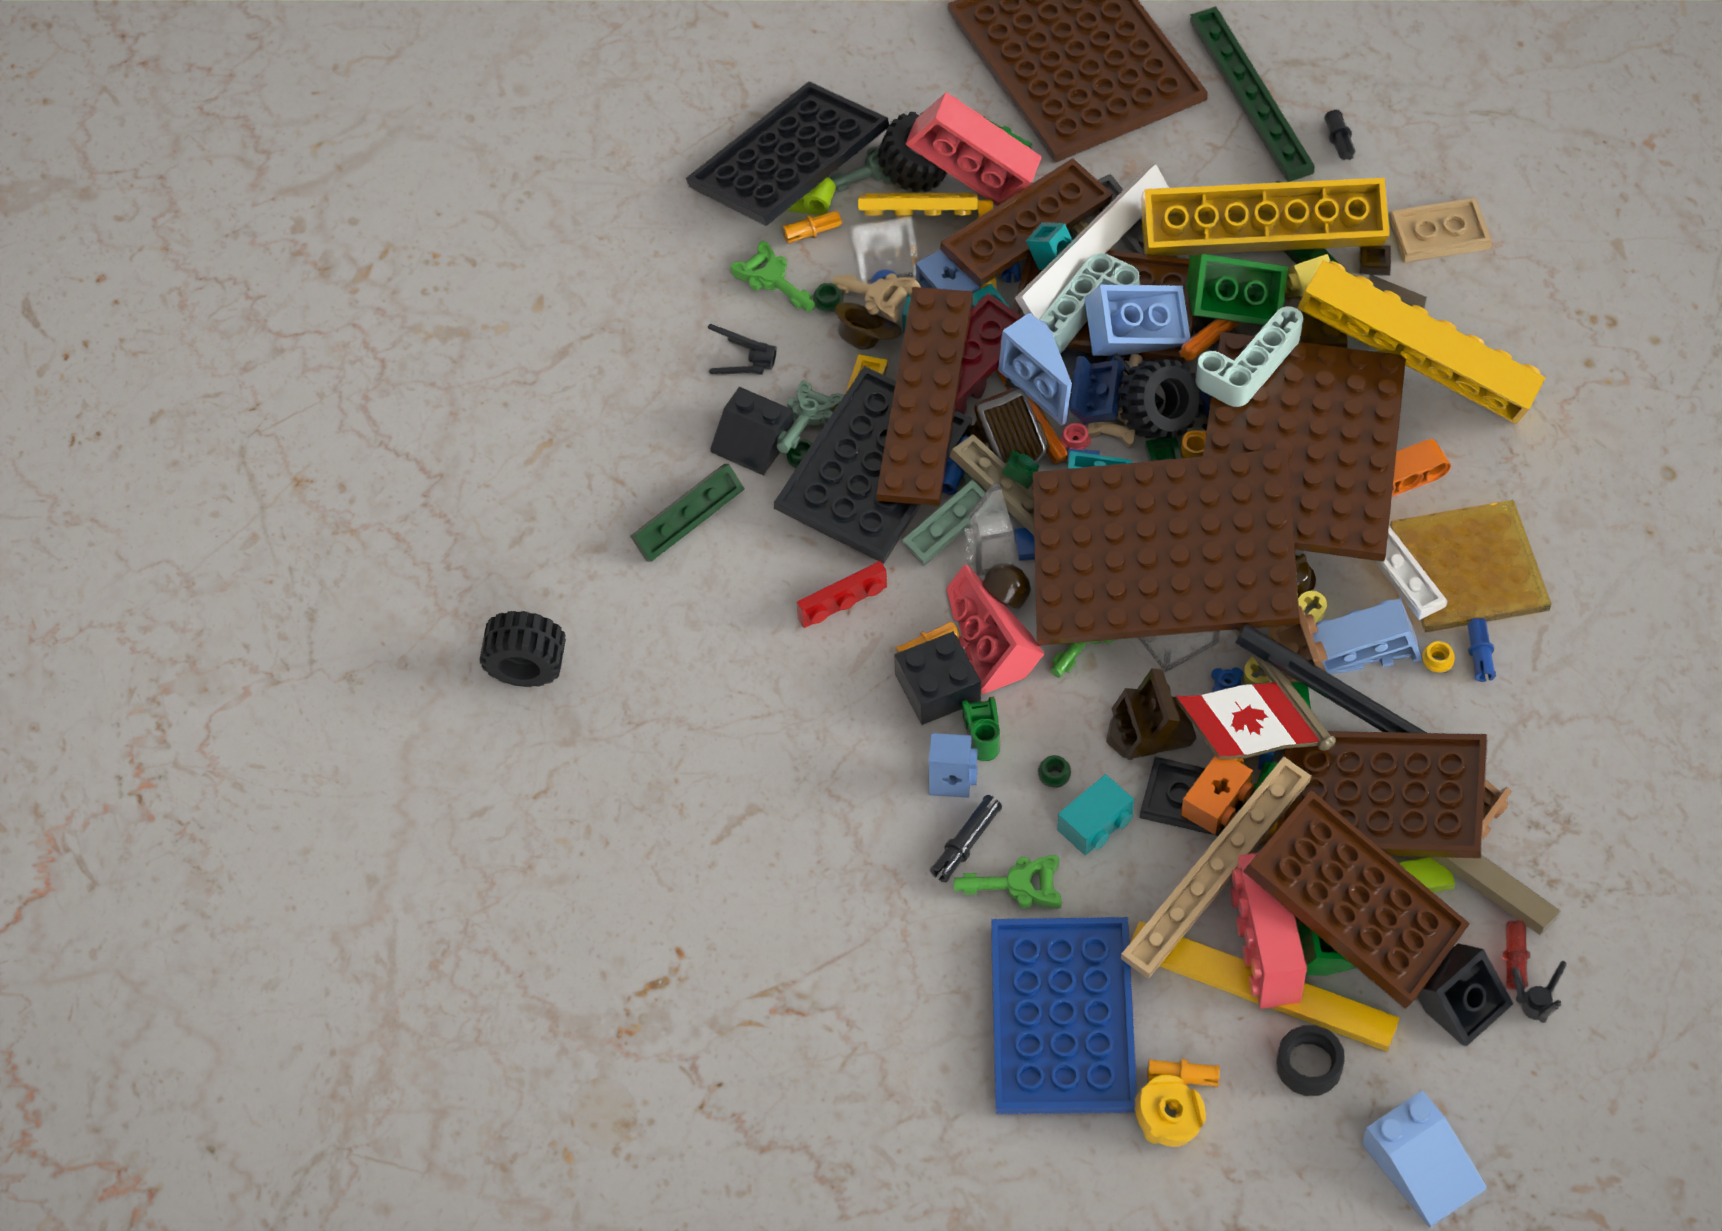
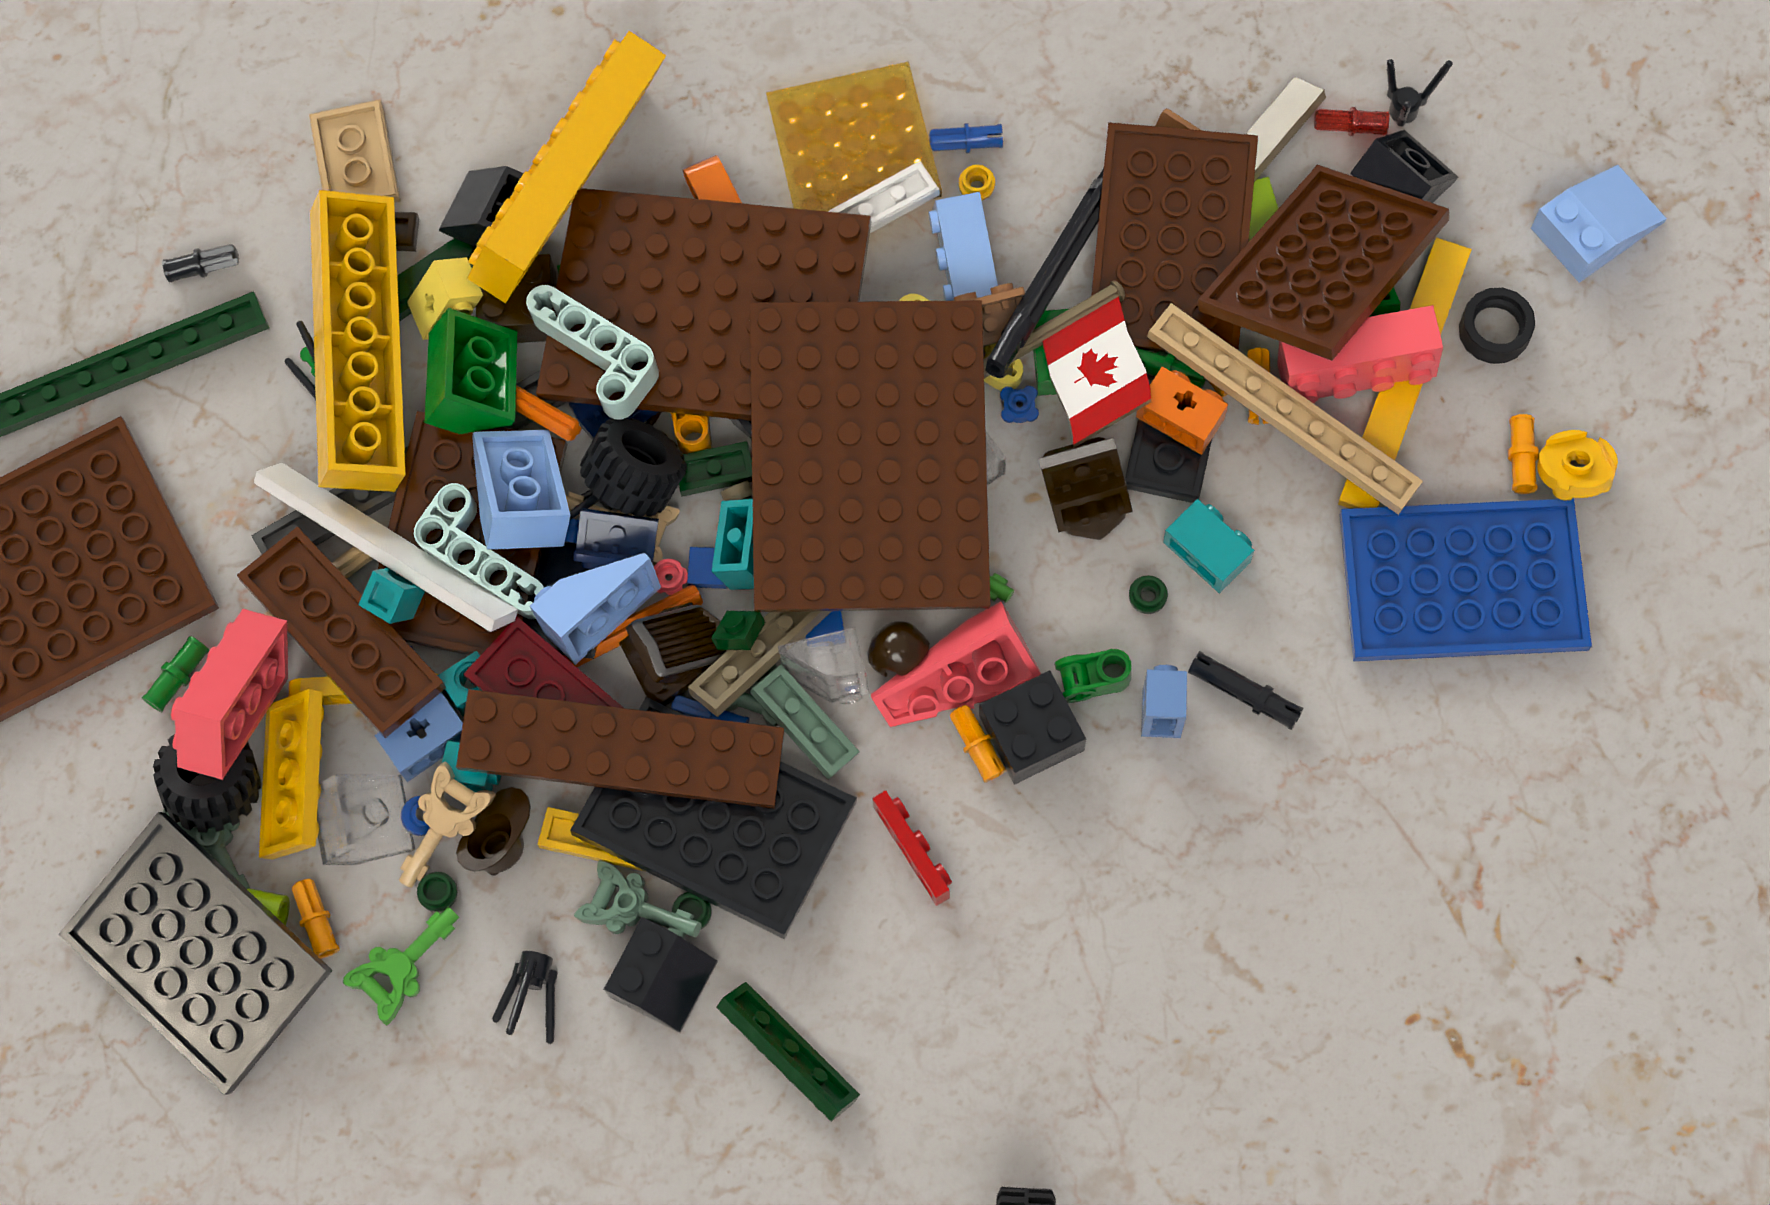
camera: 90 degrees left, 15 degrees up
(1019, 882) = (1300, 630): bright green piece -> none

